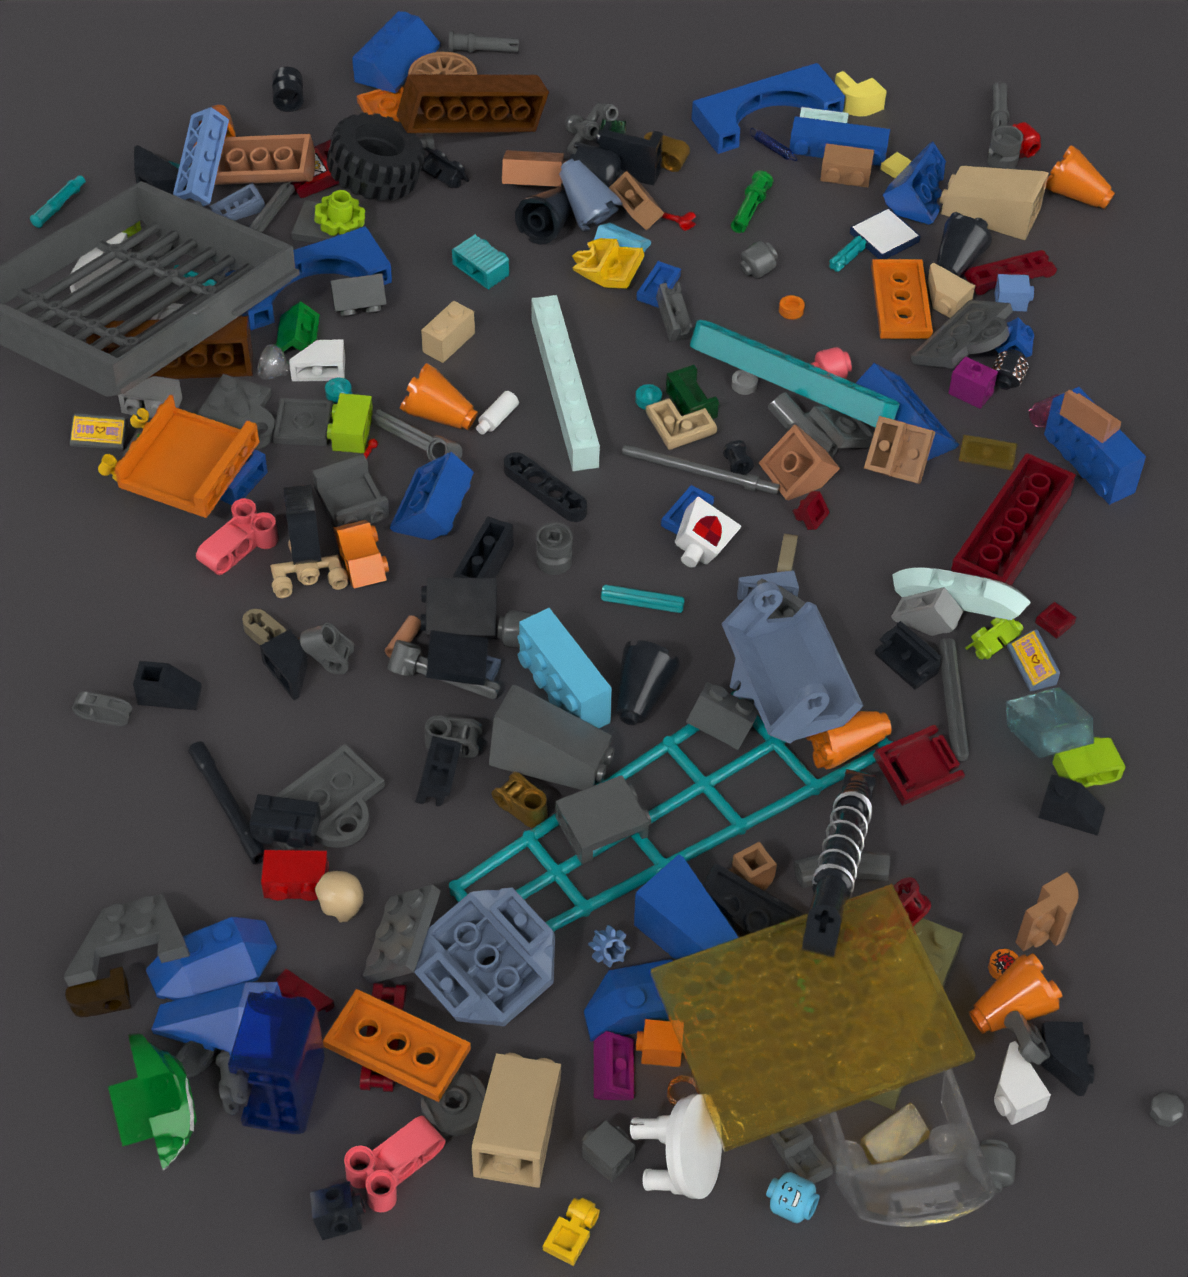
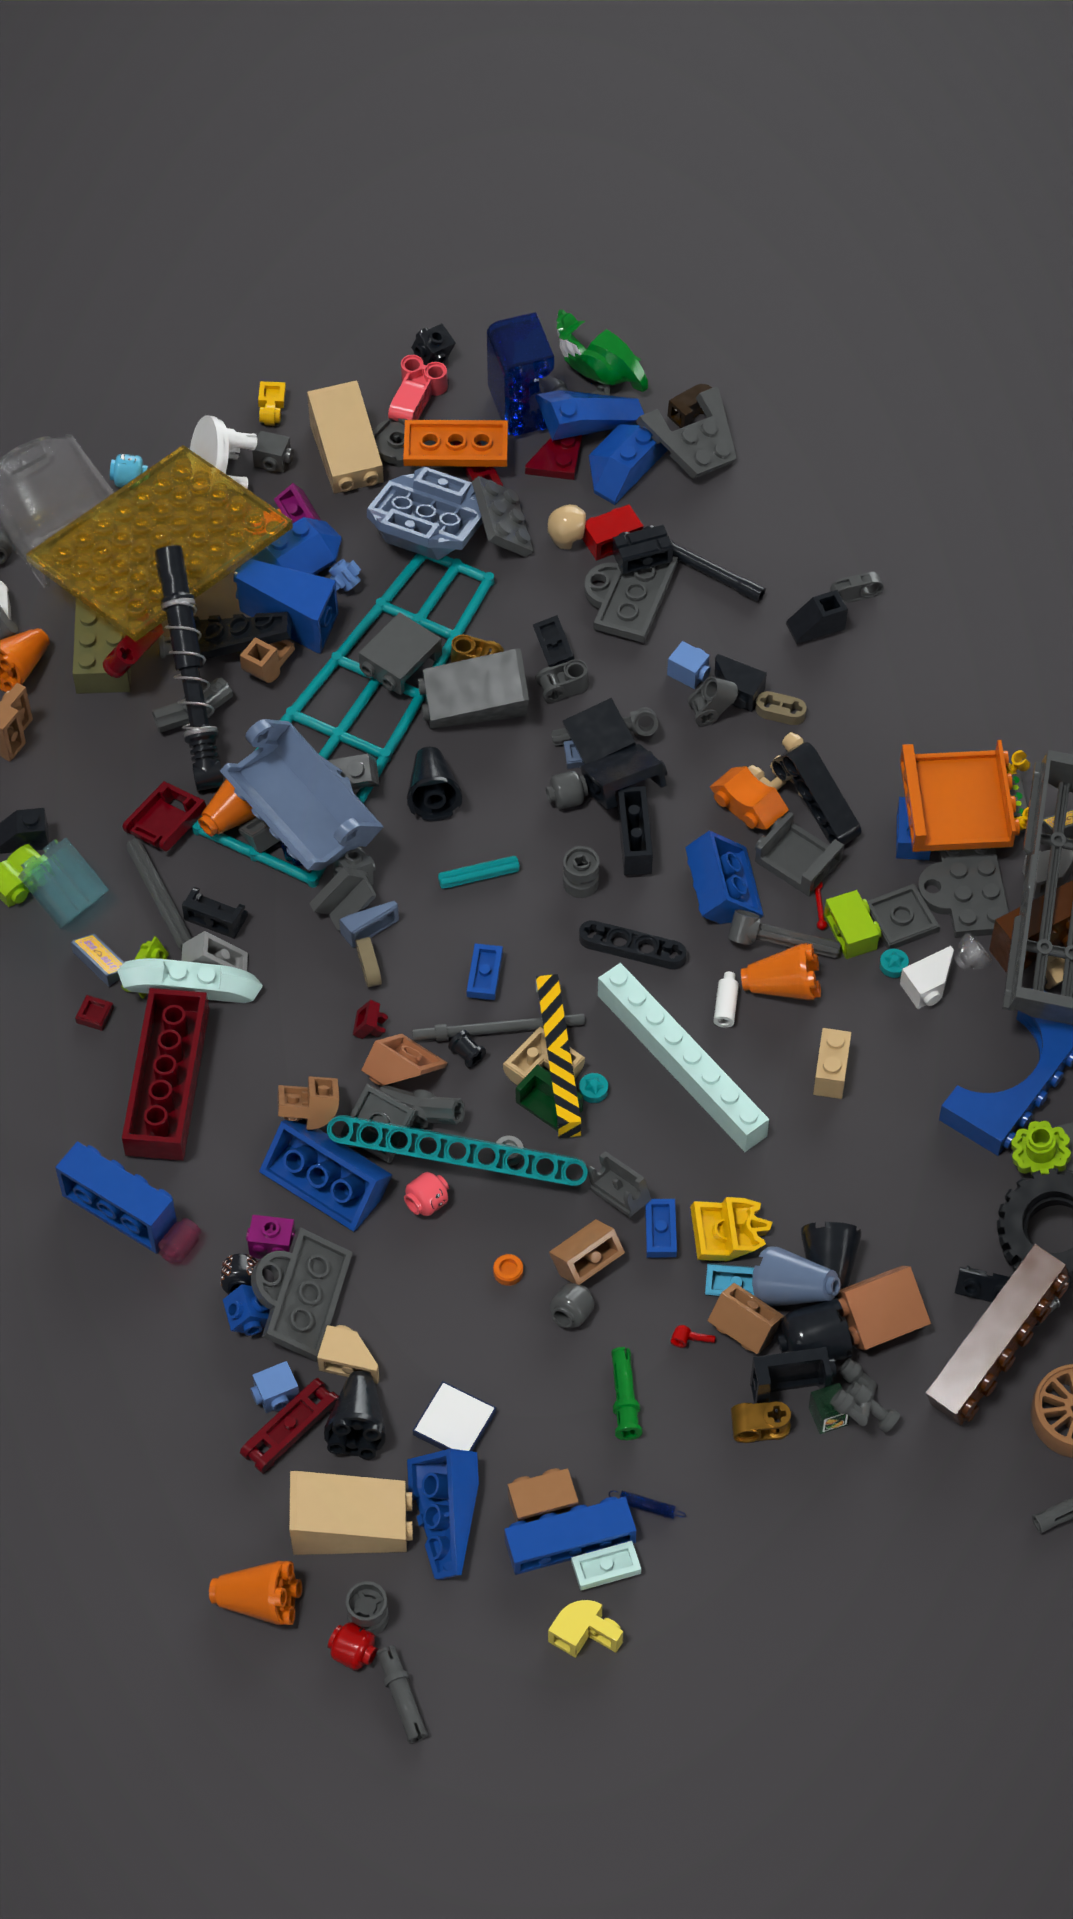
camera: 155 degrees right, 5 degrees up
(238, 537) = (864, 777): coral piece -> none
(297, 327) = (979, 1006): green panel -> none
(321, 700) = (689, 665): none -> medium blue brick
(358, 293) = (950, 1063): dark grey brick -> none
(406, 633) = (661, 743): nougat axle -> none
(481, 261) = (860, 1169): teal brick -> none
(563, 669) = (499, 754): medium azure brick -> none
(662, 421) = (559, 1056): none -> sticker
(704, 532) = (452, 942): white torso -> none
(720, 113) = (655, 1608): blue arch -> none
(728, 281) = (586, 1252): none -> medium nougat brick
(848, 253) = (482, 1370): teal axle -> none
(895, 164) = (486, 1538): light yellow tile -> none
(916, 302) = (386, 1345): orange plate -> none
(987, 452) = (227, 1174): clear yellow slope -> none
(1000, 961) = (37, 691): tile -> none
(1089, 416) = (125, 1177): nougat panel -> none

